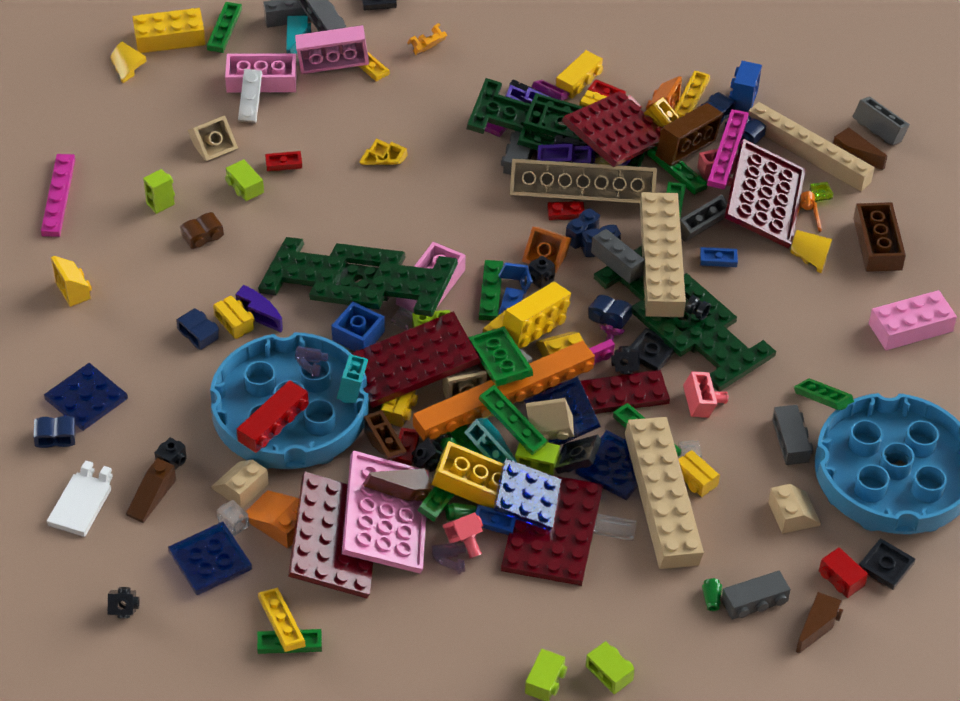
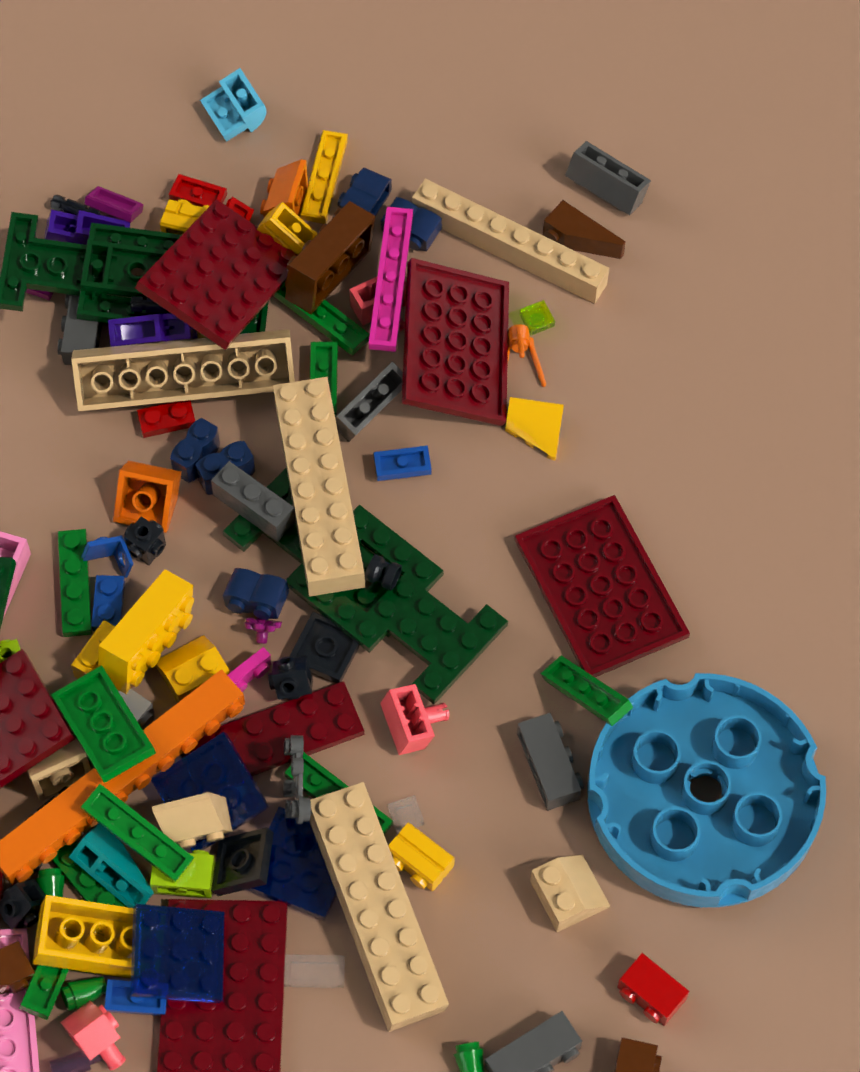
camera: 10 degrees left, 15 degrees up
(580, 73) = (153, 167): yellow brick -> none
(622, 421) = (301, 806): none -> dark grey plant
(639, 48) = (235, 106): none -> medium azure brick
(745, 85) = (401, 150): blue brick -> none
(842, 344) = (601, 587): none -> dark red plate
(879, 237) = (631, 388): reddish brown brick -> none
(887, 563) = (713, 960): black plate -> none
(912, 320) = (697, 525): bright pink brick -> none

